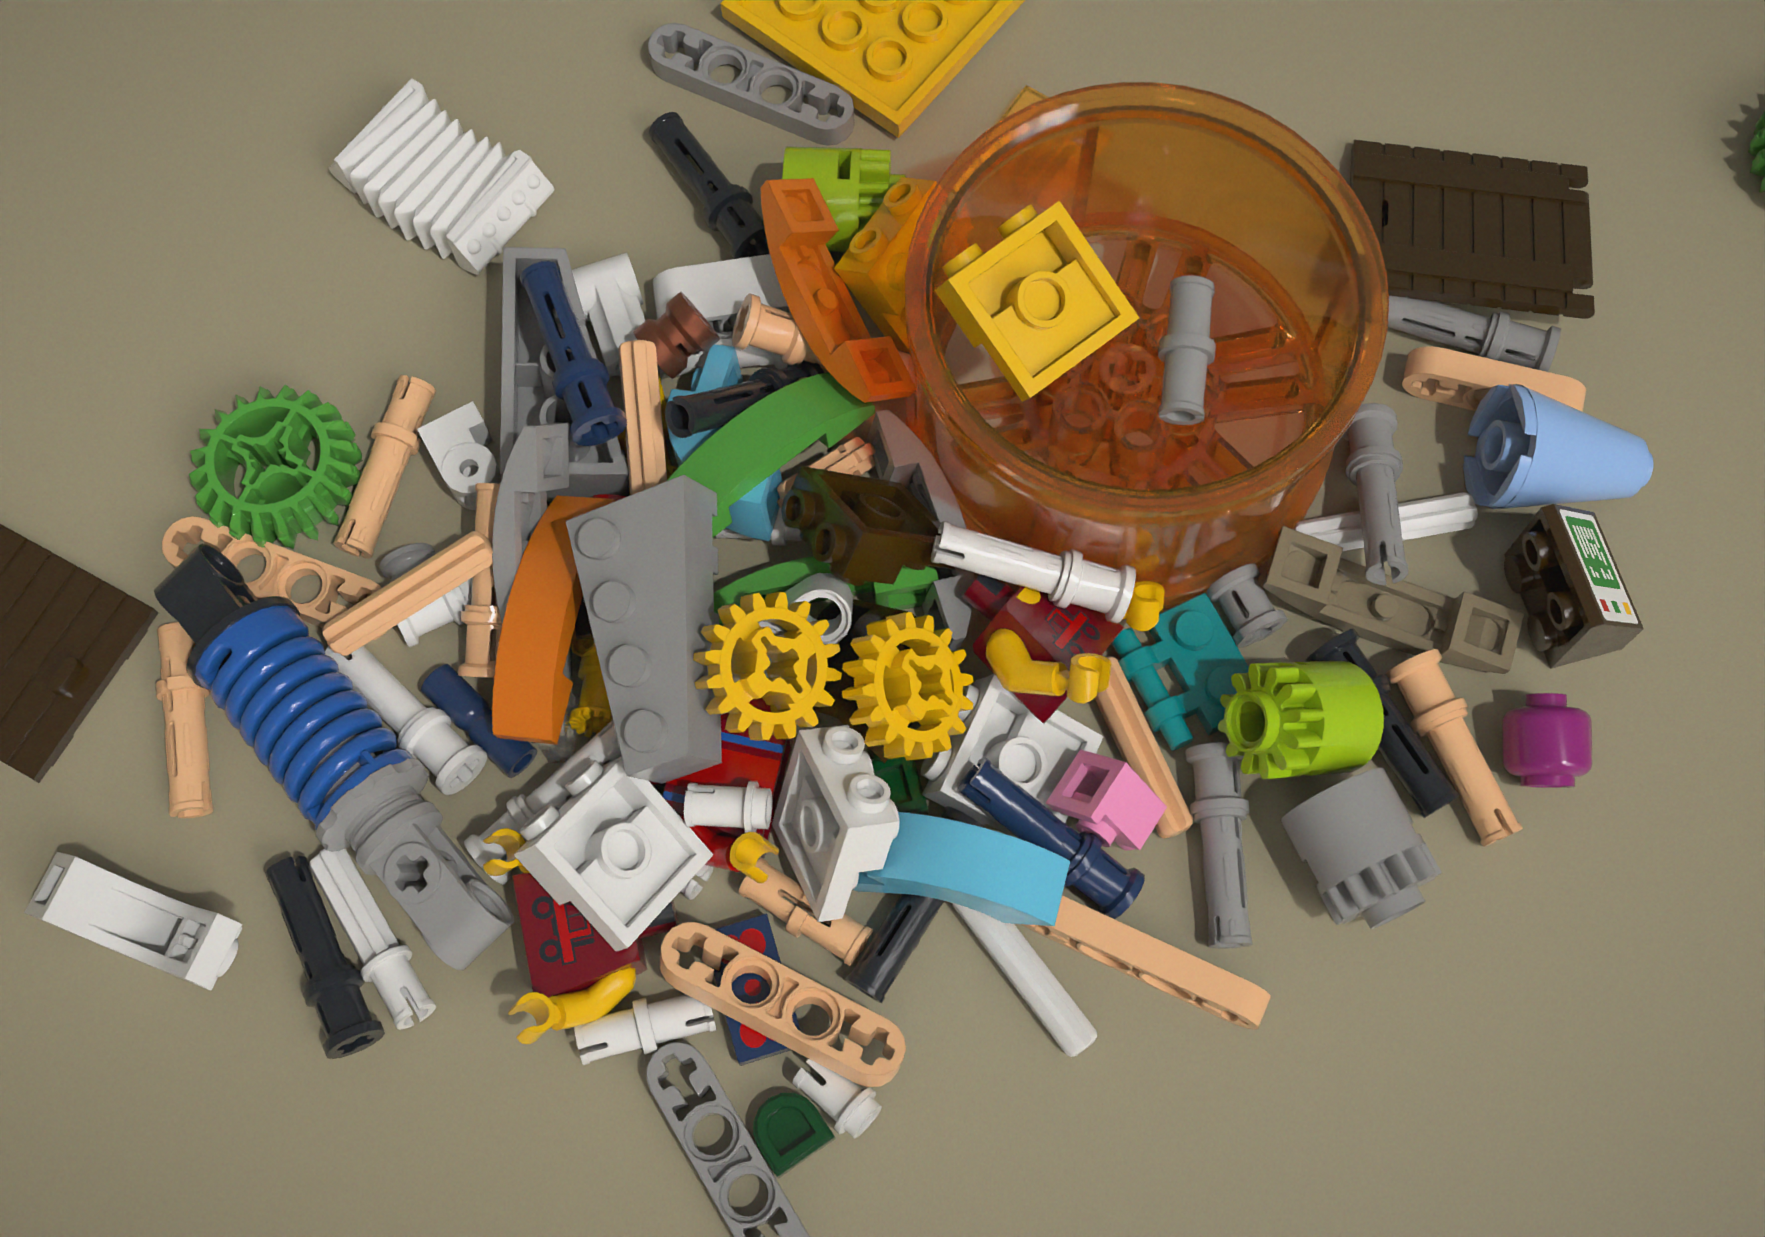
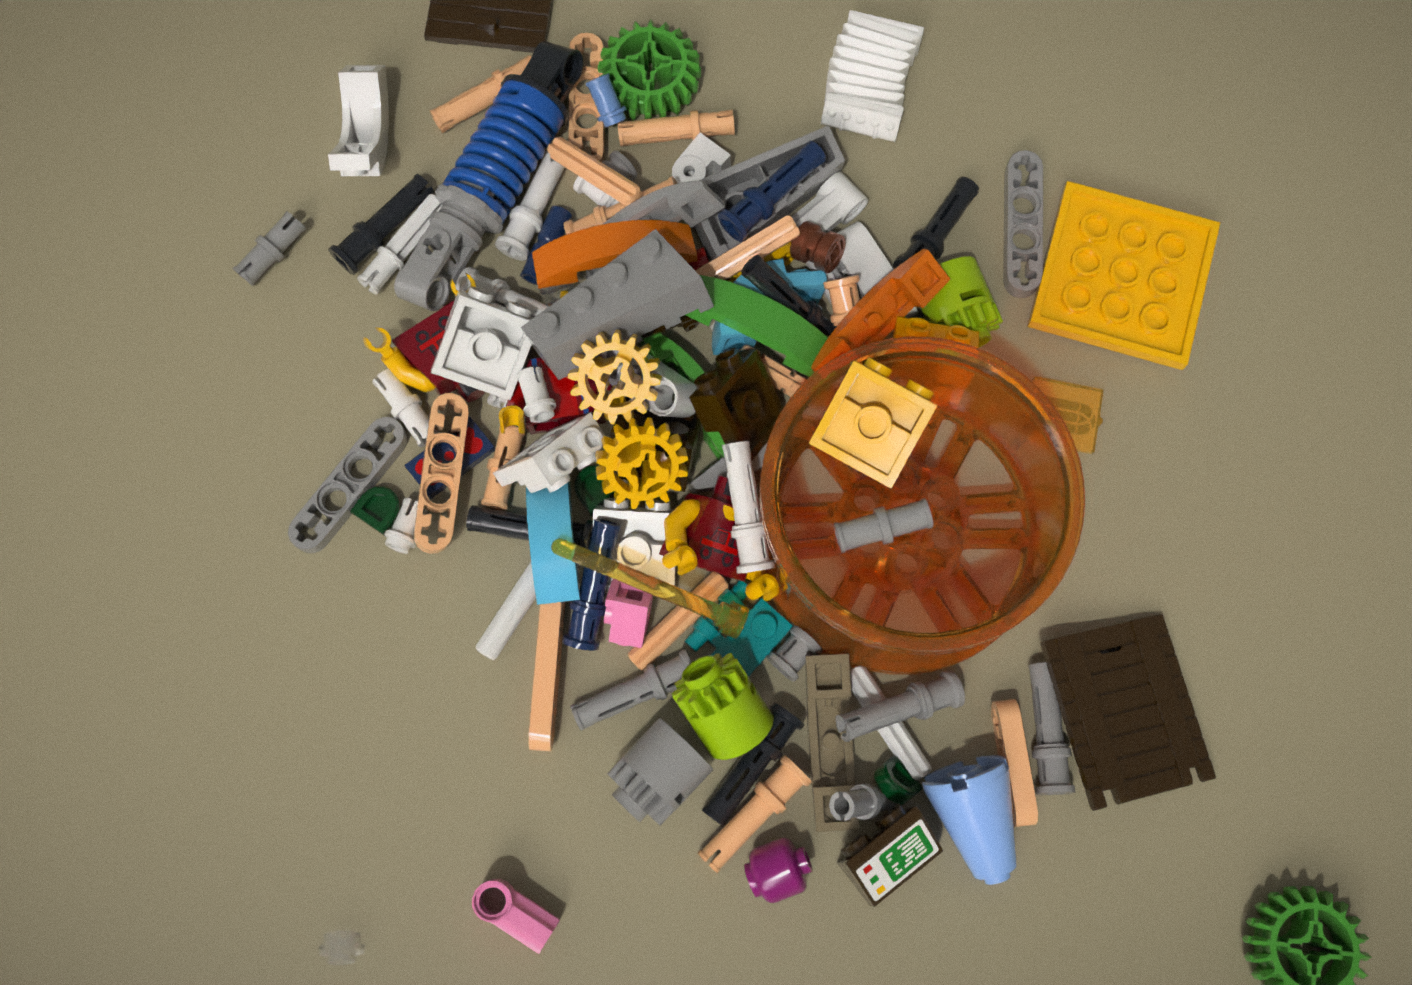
camera: 65 degrees right, 5 degrees up
(274, 1155) = (269, 248): none -> light grey pin
(299, 538) = (606, 100): none -> medium blue pin
(1172, 664) = (728, 617): none -> clear yellow piece
(1470, 541) = (896, 781): none -> dark green tile
(1495, 587) = (862, 802): none -> light grey pin
(1498, 1136) = (520, 915): none -> bright pink piece

